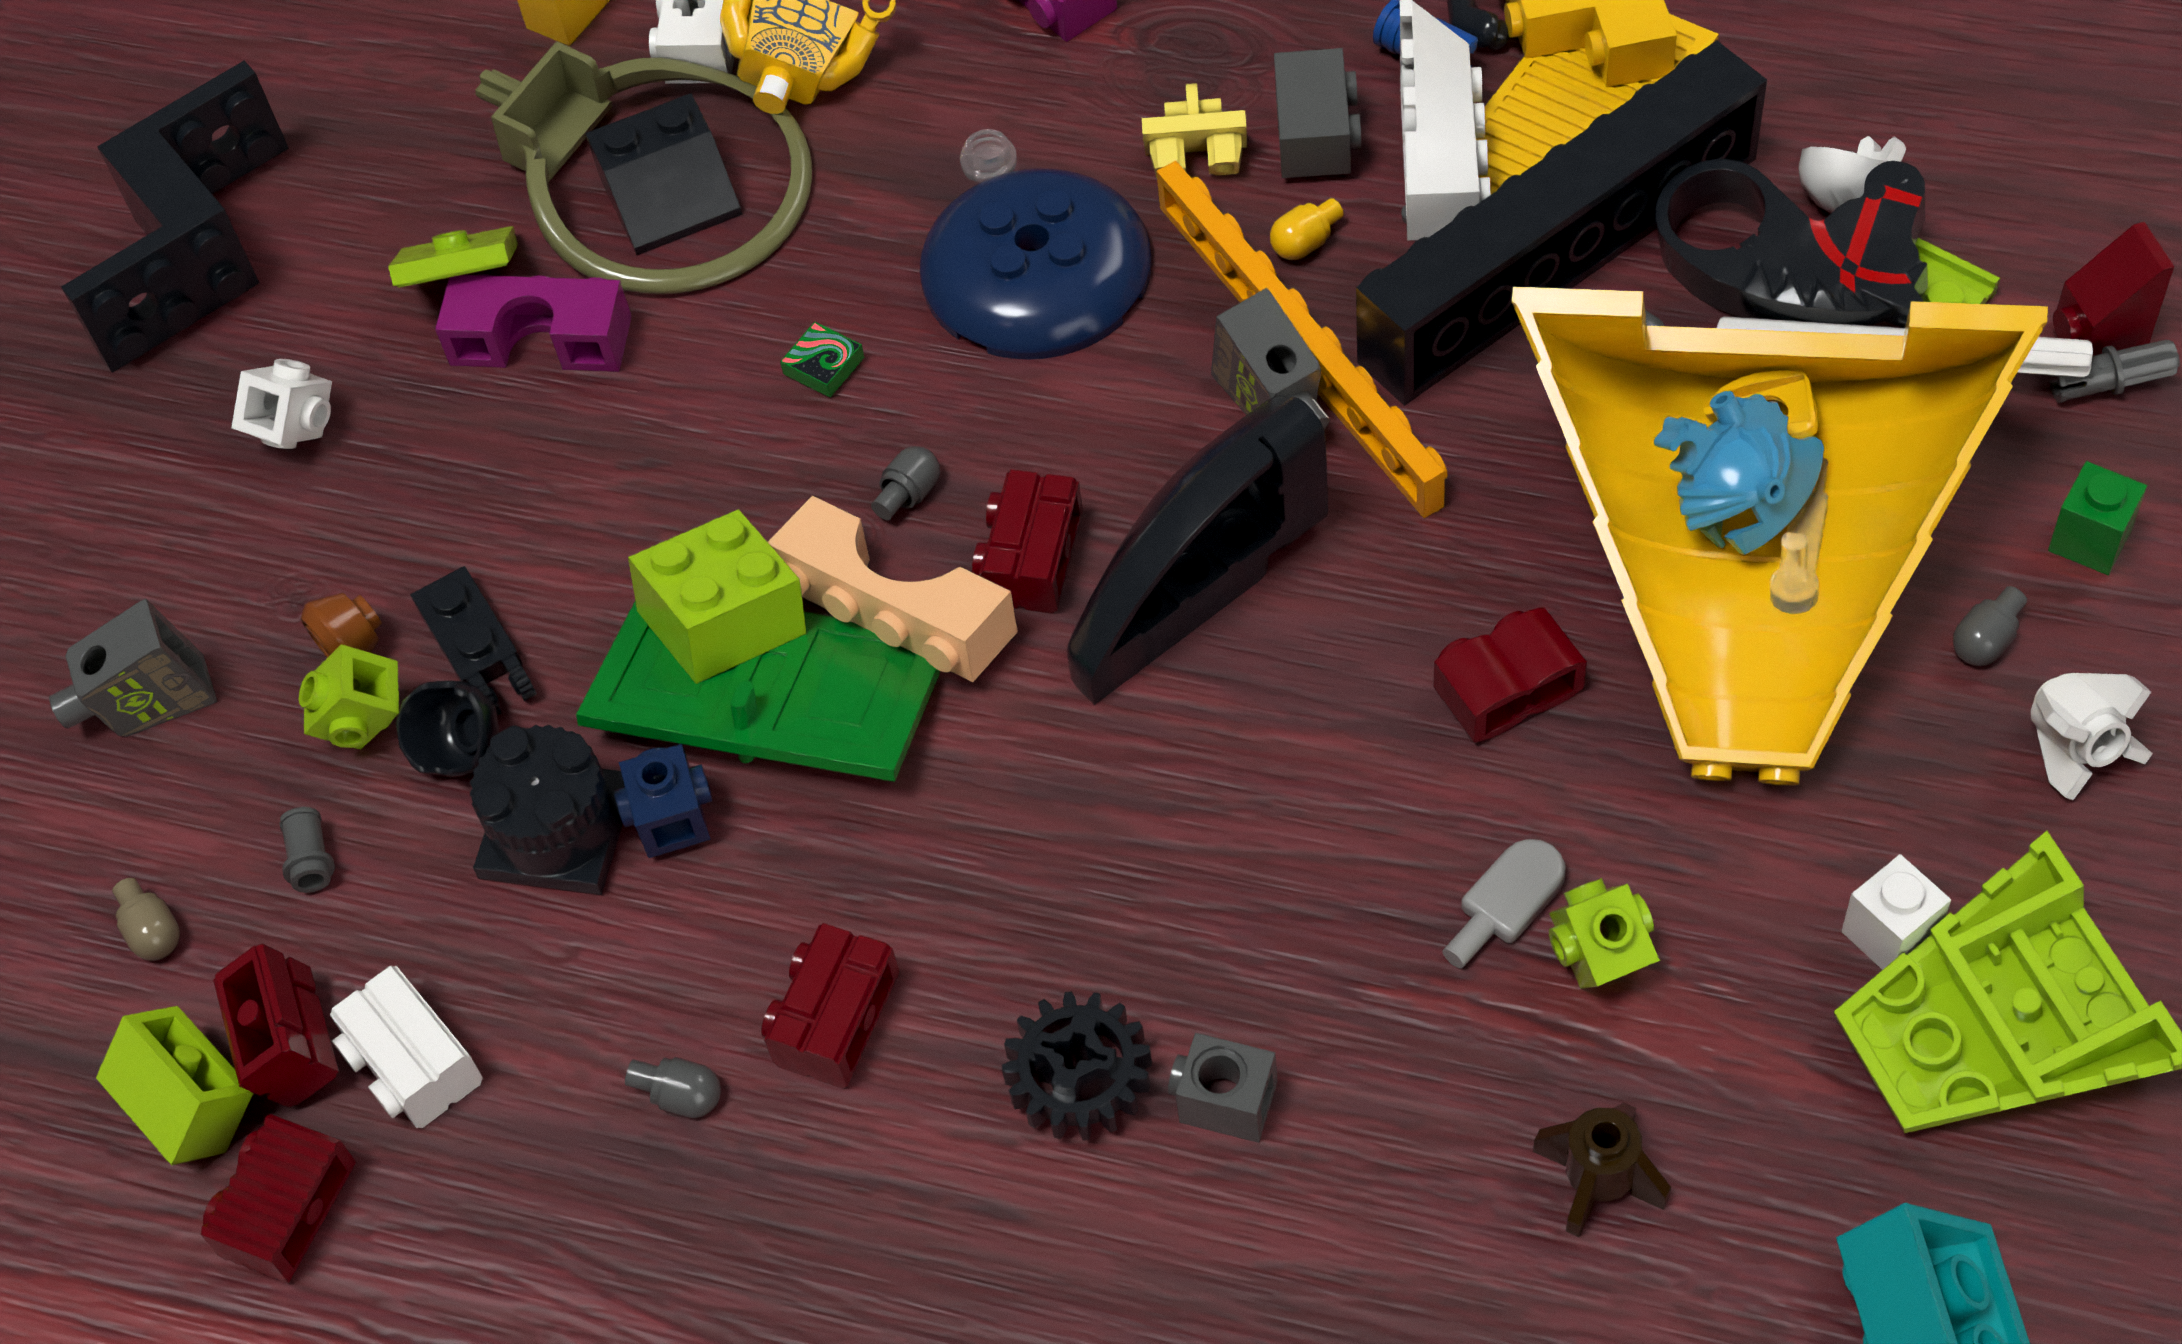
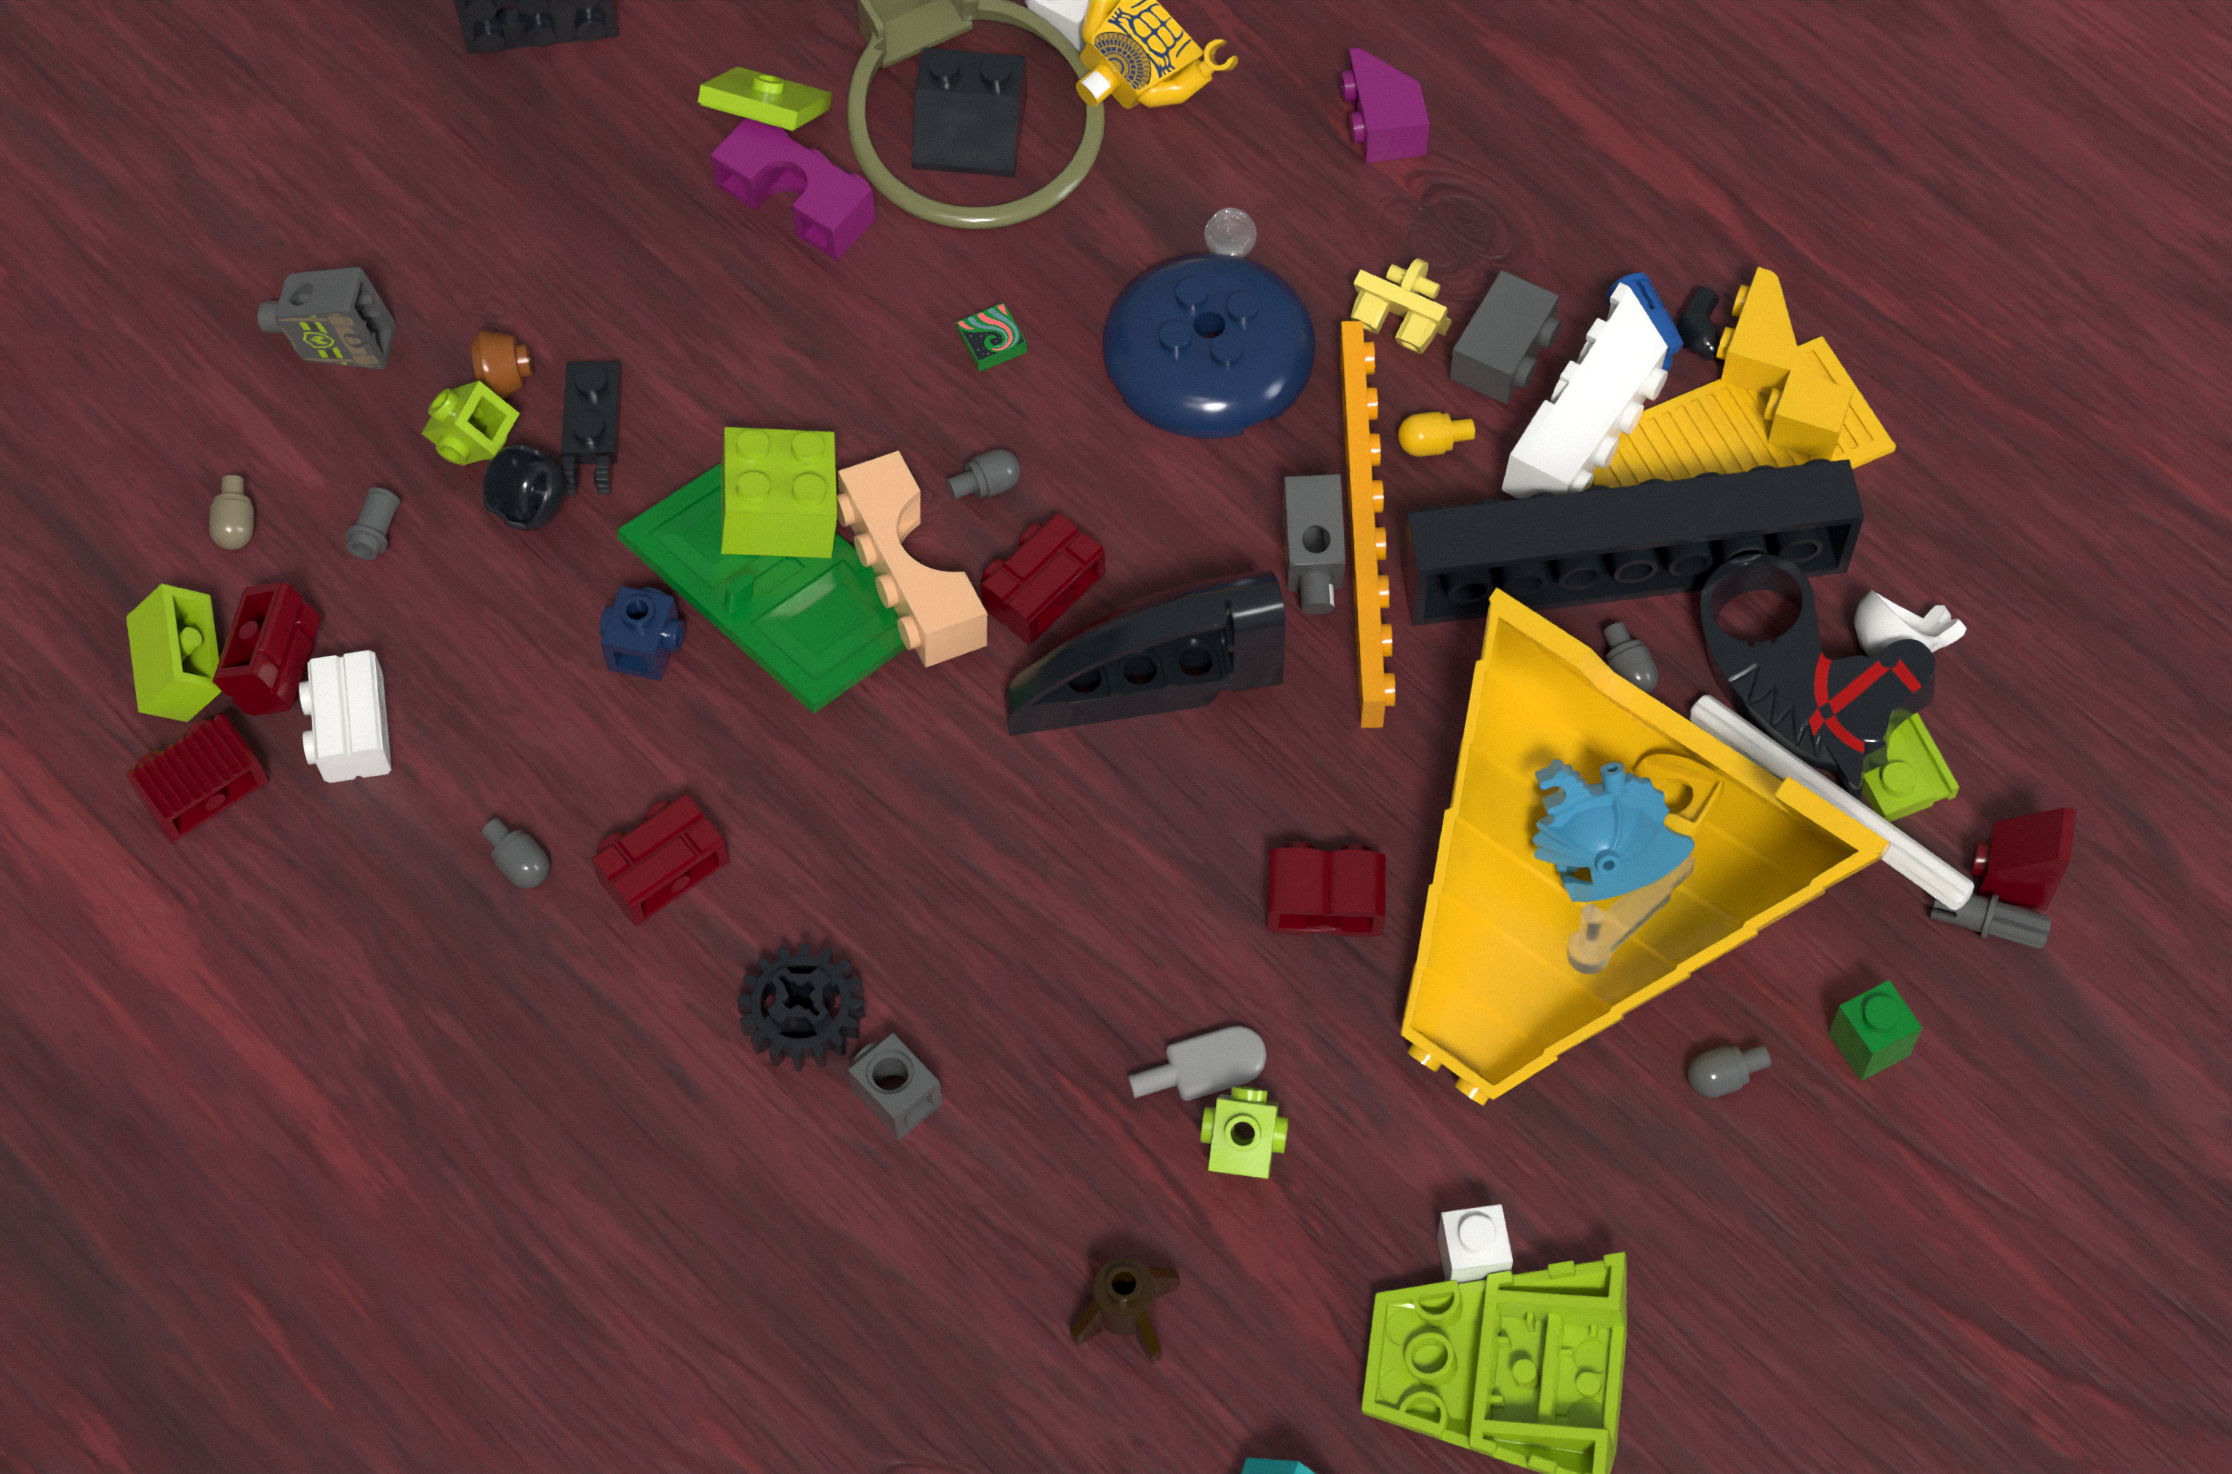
camera: 25 degrees right, 5 degrees up
(282, 404) = (564, 154): white brick -> none
(545, 810) = (550, 592): black piece -> none
(2084, 722) = (1733, 1191): white brick -> none

